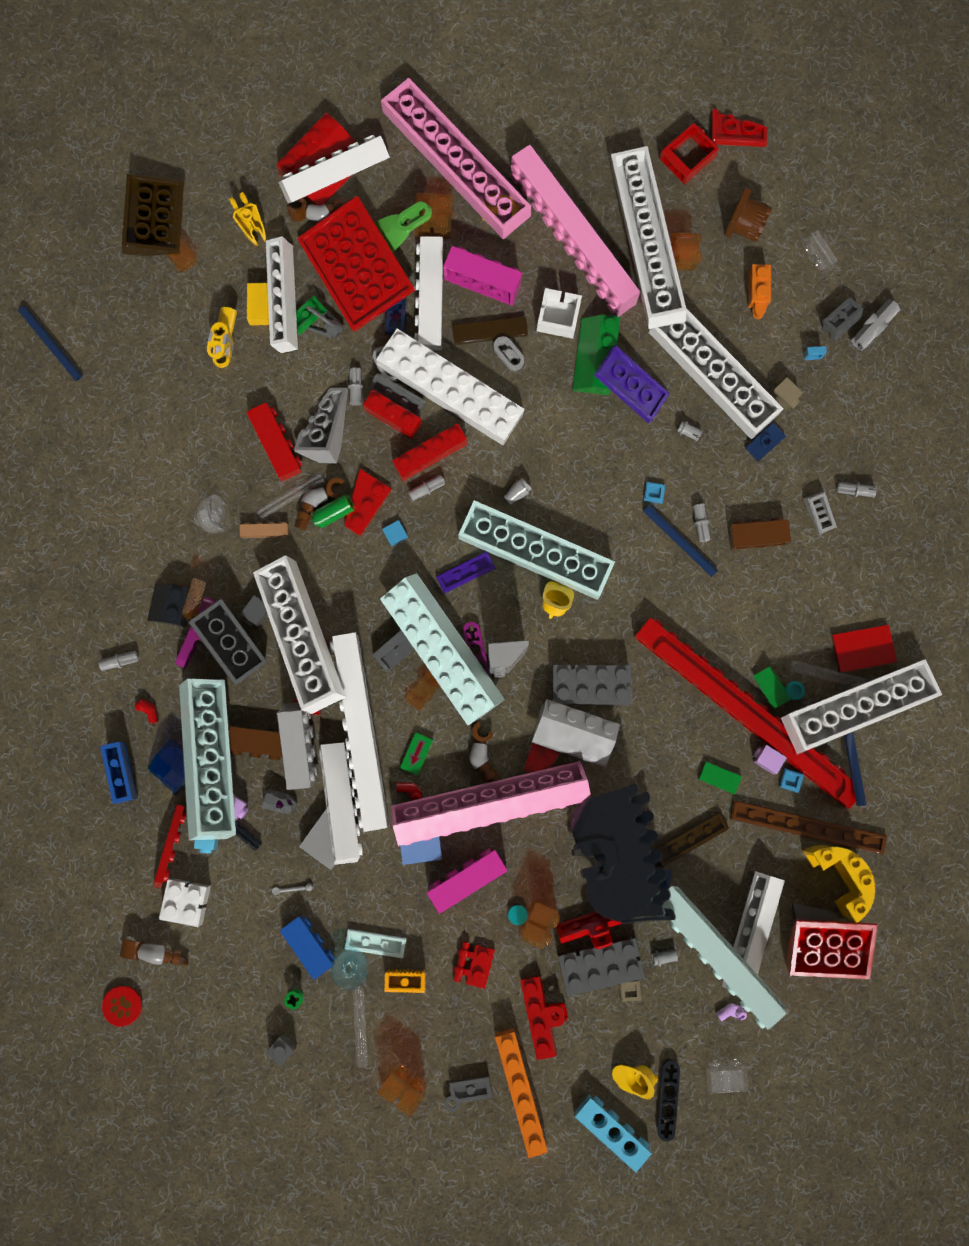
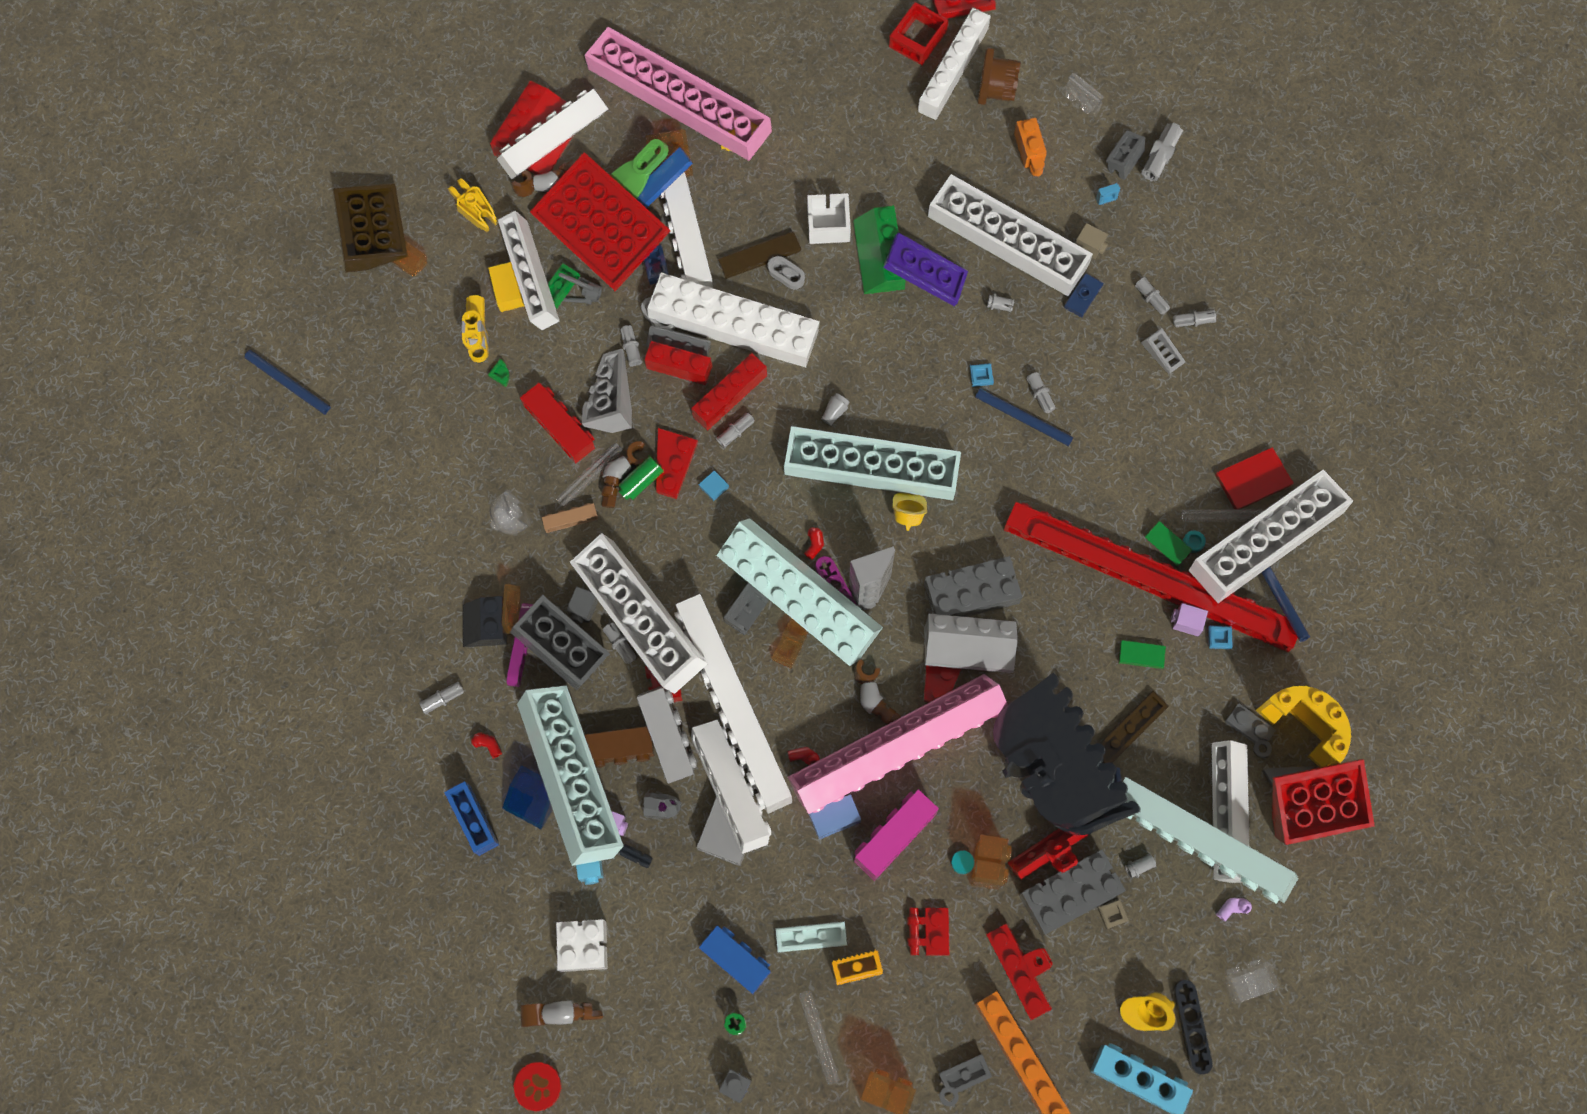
camera: 10 degrees left, 10 degrees down
(168, 853) = (549, 892): red wing -> none
(236, 382) = (500, 373): none -> green tile
(276, 890) = (683, 907): light grey hinge -> none
(277, 653) = (619, 643): none -> light grey axle
(357, 969) = (798, 972): clear light blue dish -> none
(416, 754) = (800, 714): green tile -> none
(422, 237) = (664, 176): none -> blue tile
(465, 572) = (801, 507): dark purple tile -> none
(470, 606) = (817, 542): none -> red arm
(482, 275) = (737, 200): dark pink brick -> none
(573, 231) = (822, 134): bright pink brick -> none
(648, 238) = (901, 121): white brick -> none
(686, 250) = (941, 126): clear orange brick -> none
(714, 190) = (954, 64): none -> white brick
(759, 533) = (1106, 388): reddish brown brick -> none
(793, 865) = (1252, 728): none -> dark grey hinge
(808, 827) = (1251, 682): reddish brown tile -> none
(826, 458) = (1152, 295): none -> light grey axle

